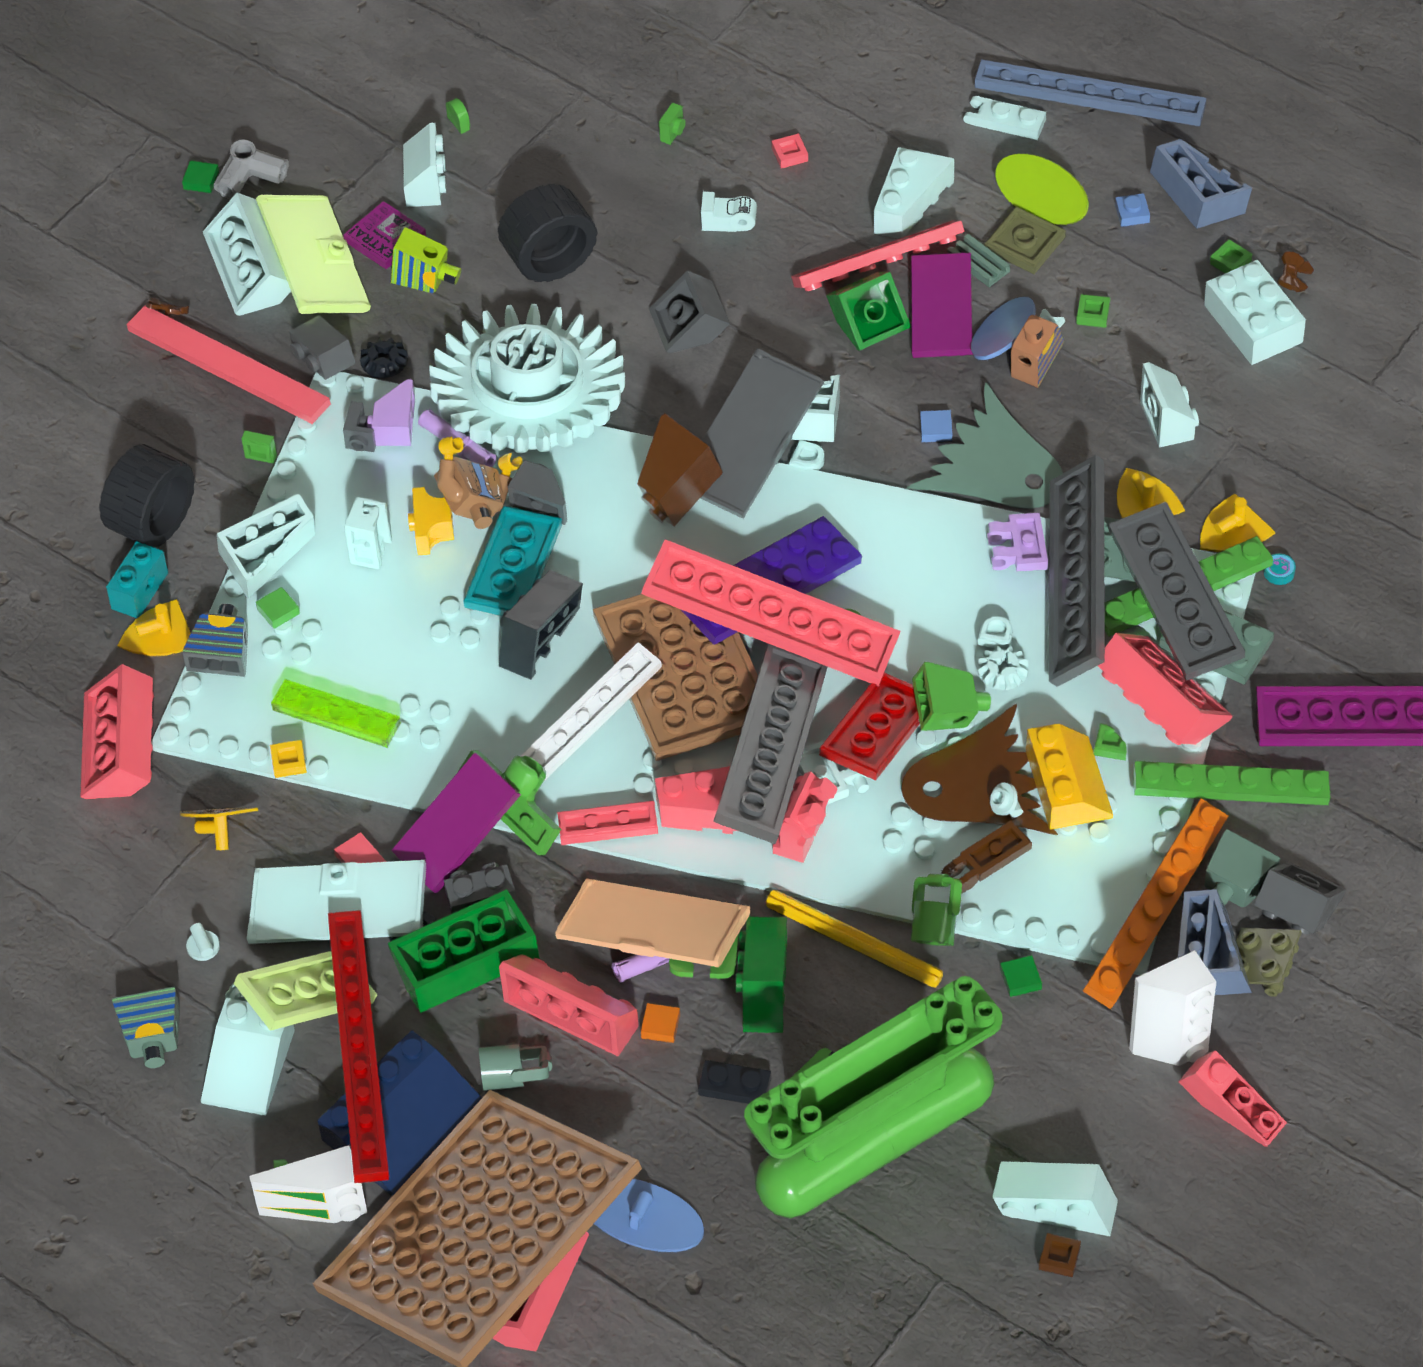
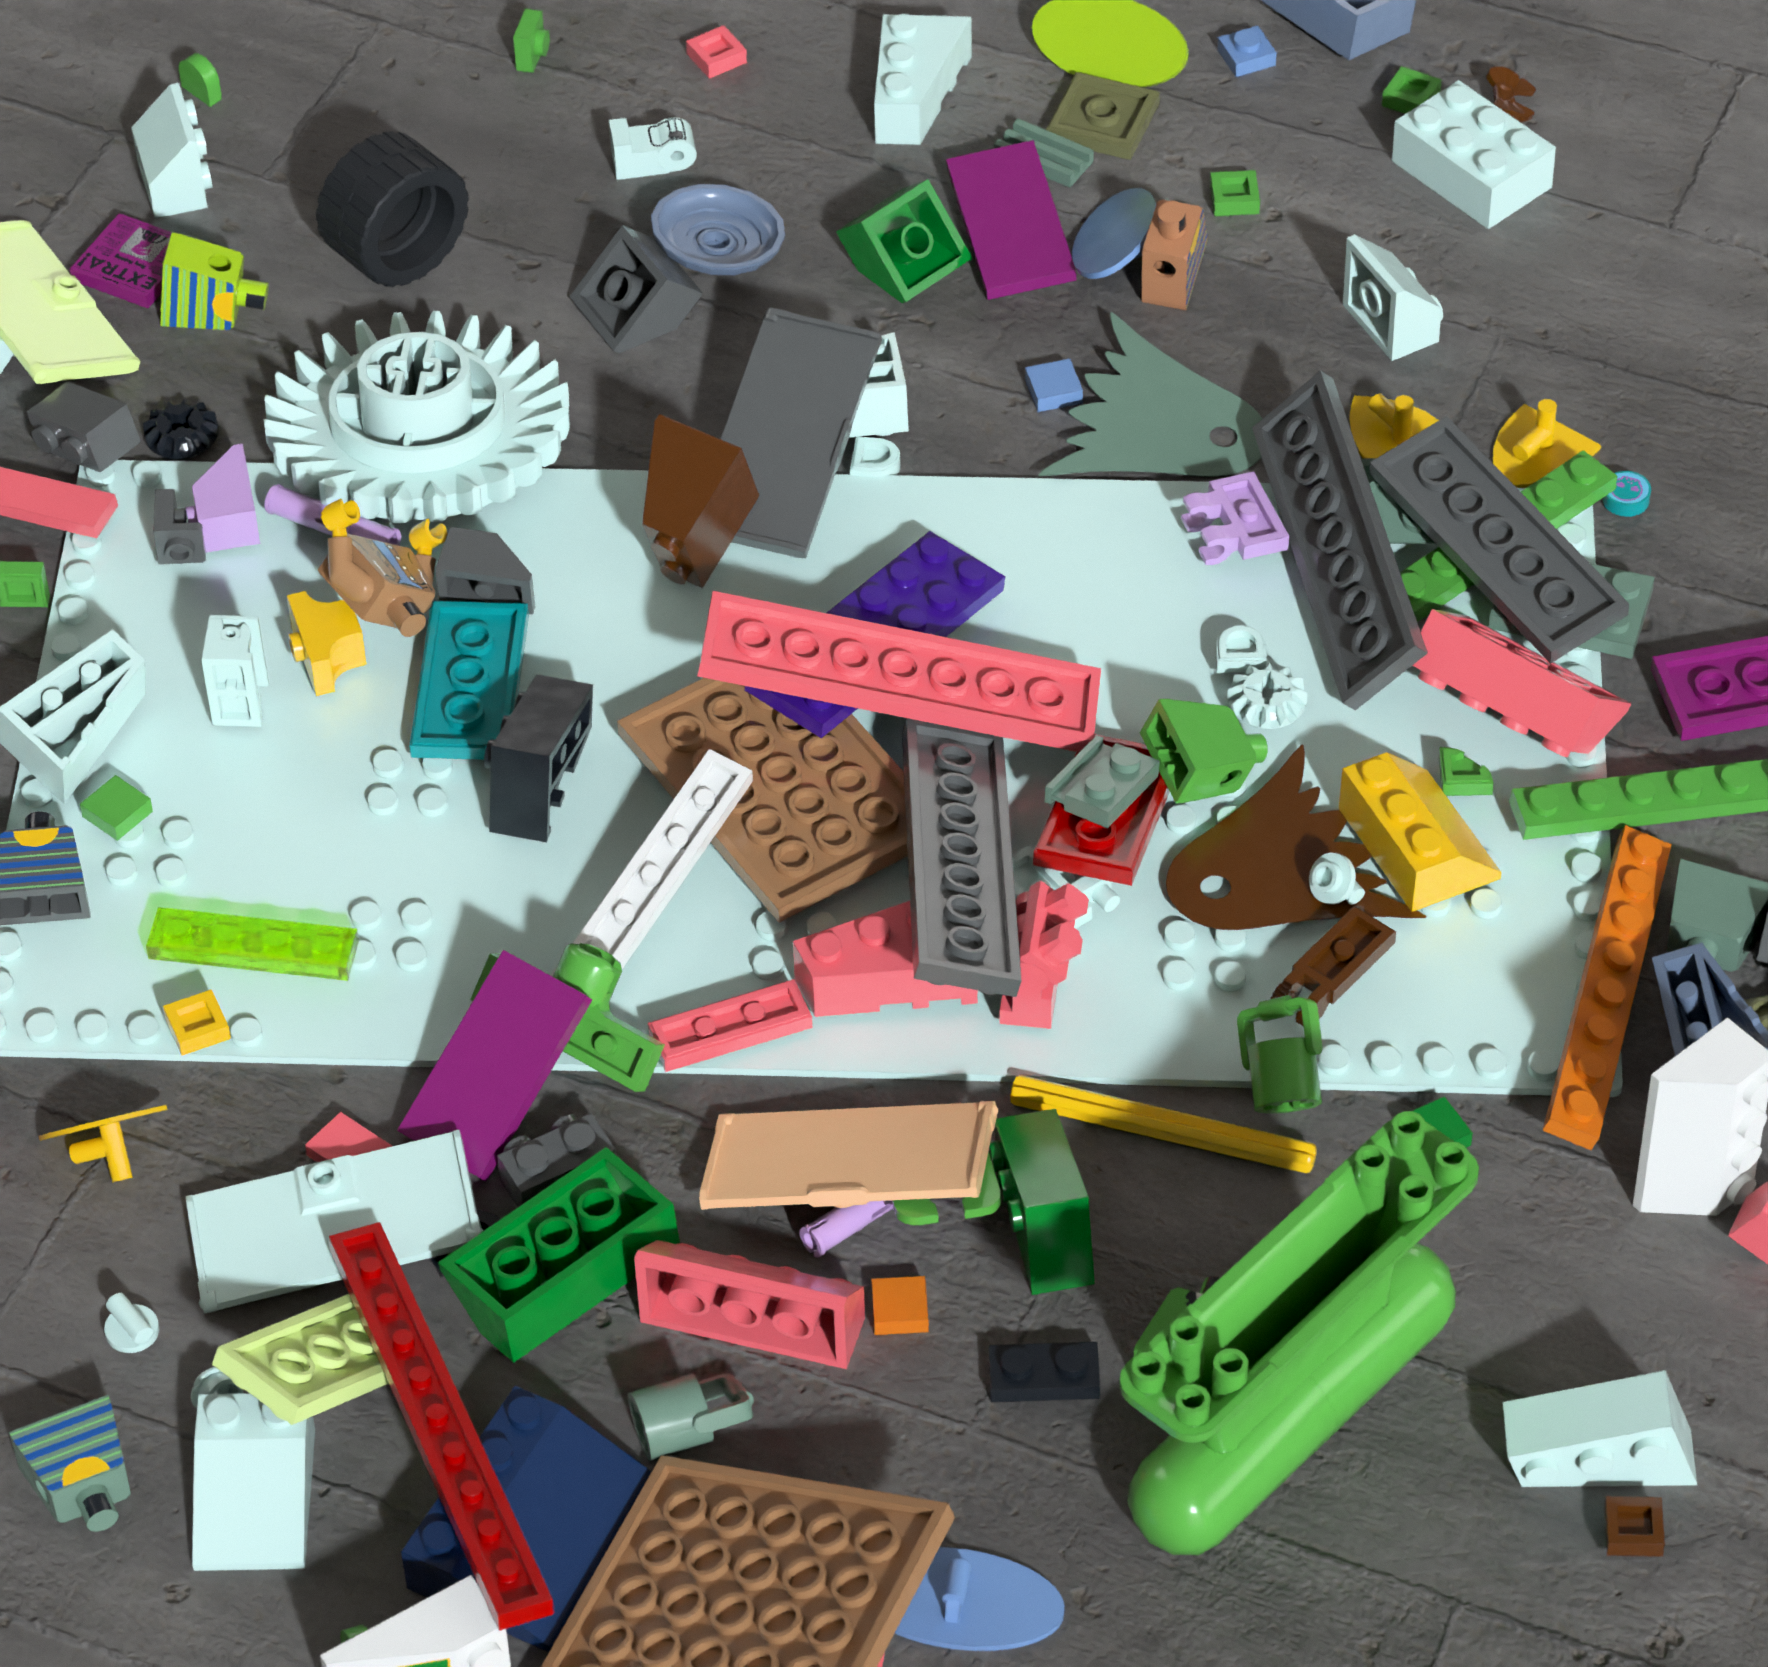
camera: 15 degrees left, 5 degrees down
(751, 280) = (717, 229): none -> sand blue hat
(877, 708) = (1102, 781): none -> sand green plate
(889, 251) = (910, 160): coral plate -> none

